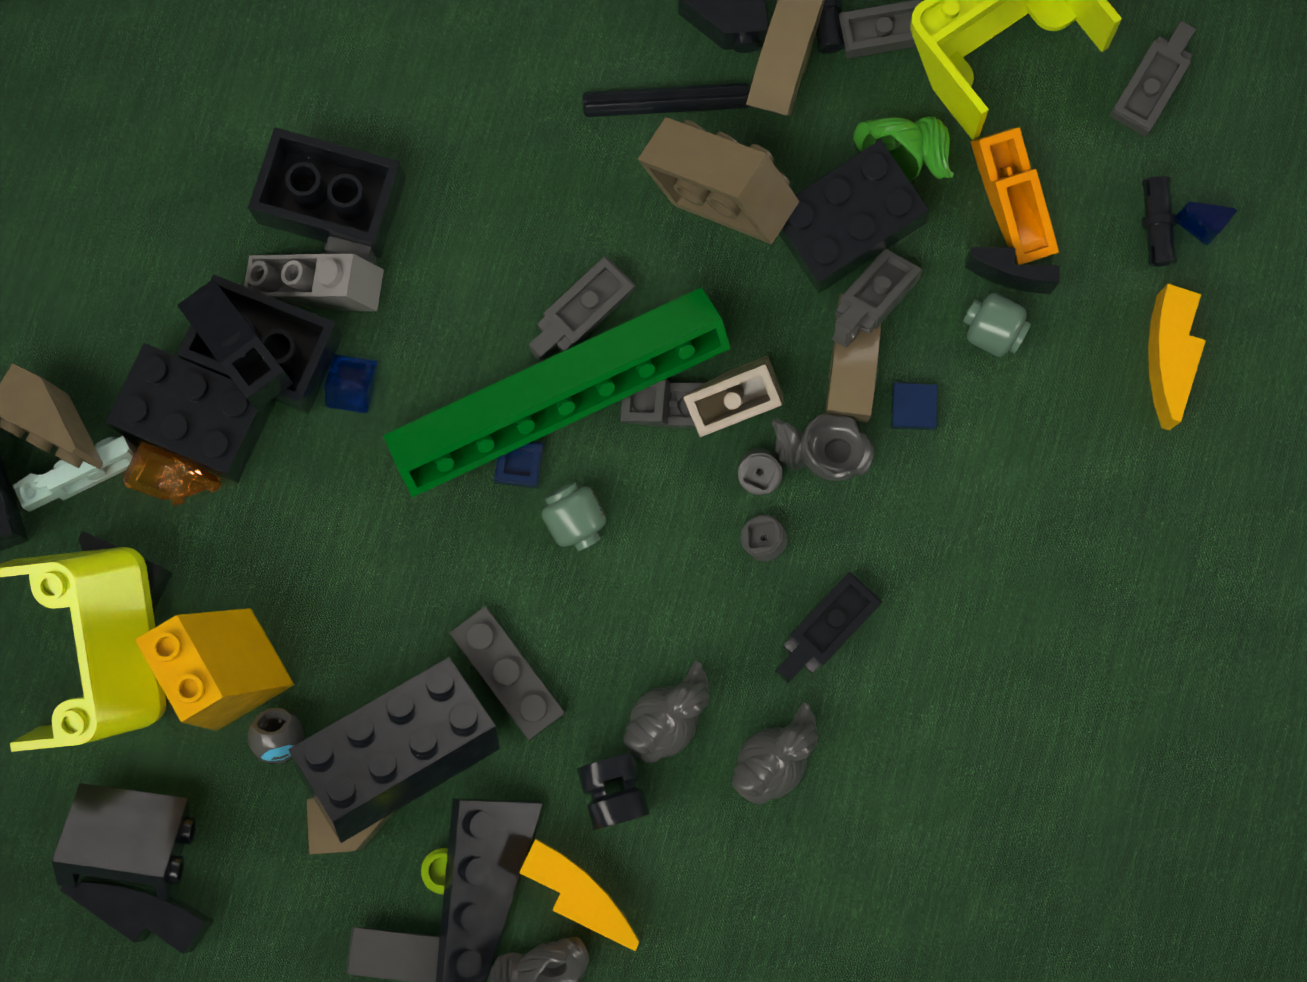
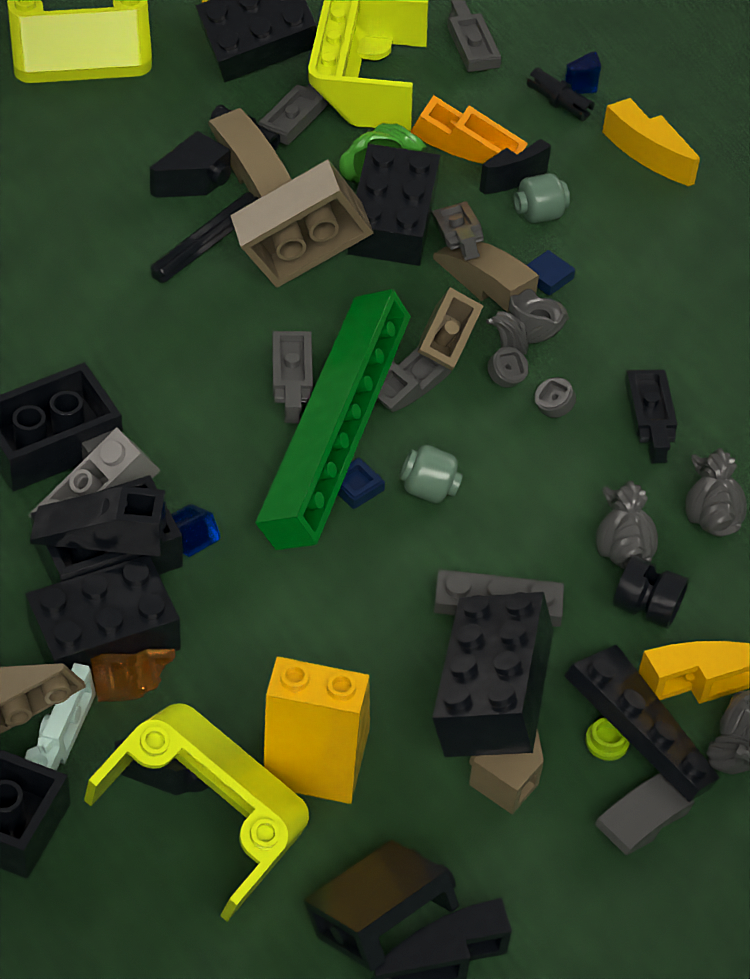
camera: 50 degrees left, 30 degrees down
(273, 734) = (401, 754): dark grey piece -> none

